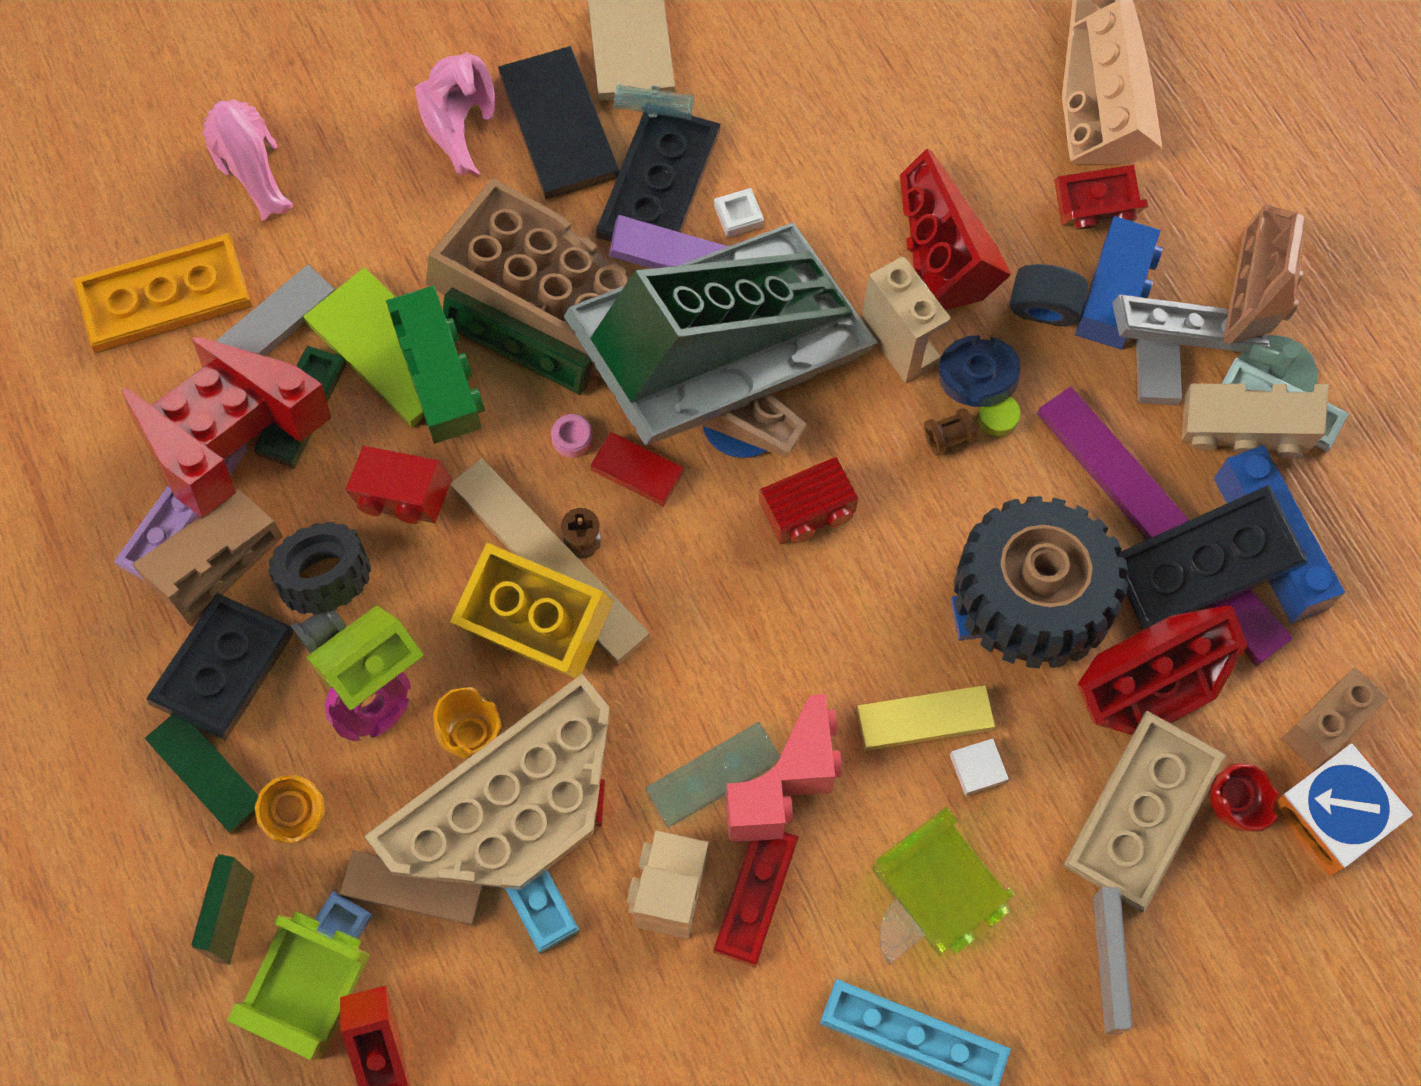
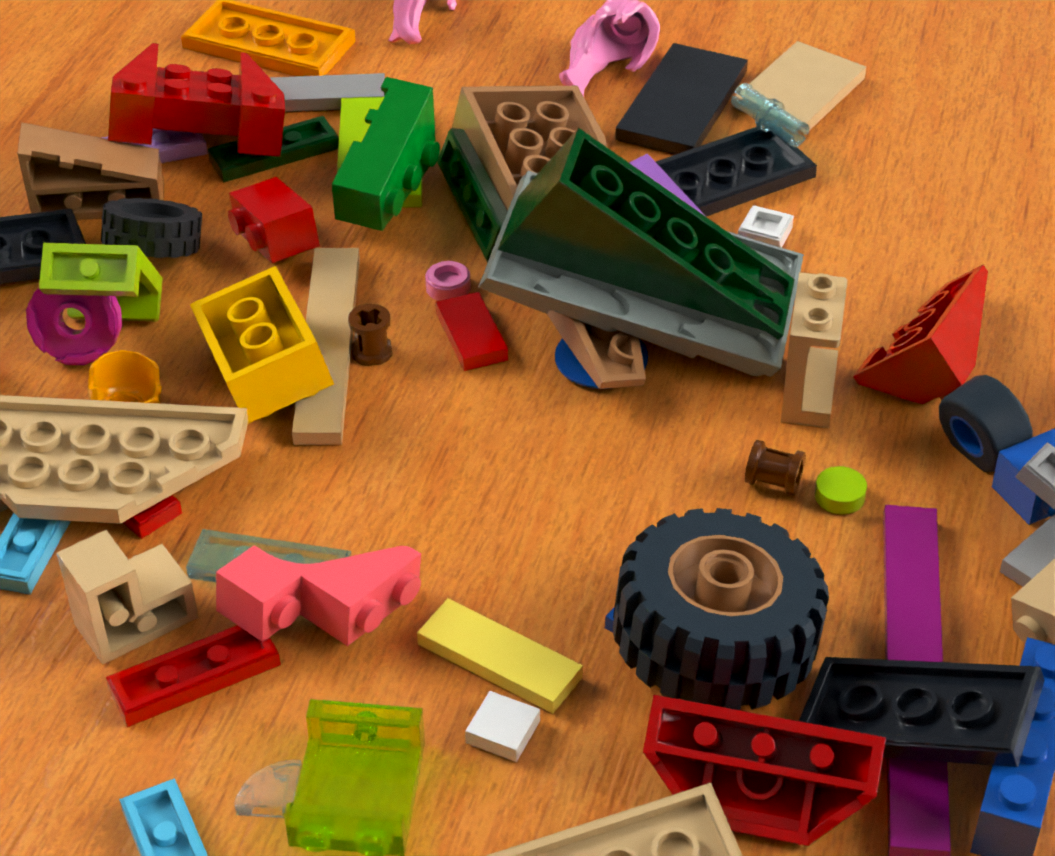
camera: 45 degrees right, 25 degrees down
(809, 501) = (583, 432): red brick -> none
(979, 371) = (856, 445): dark blue tile -> none

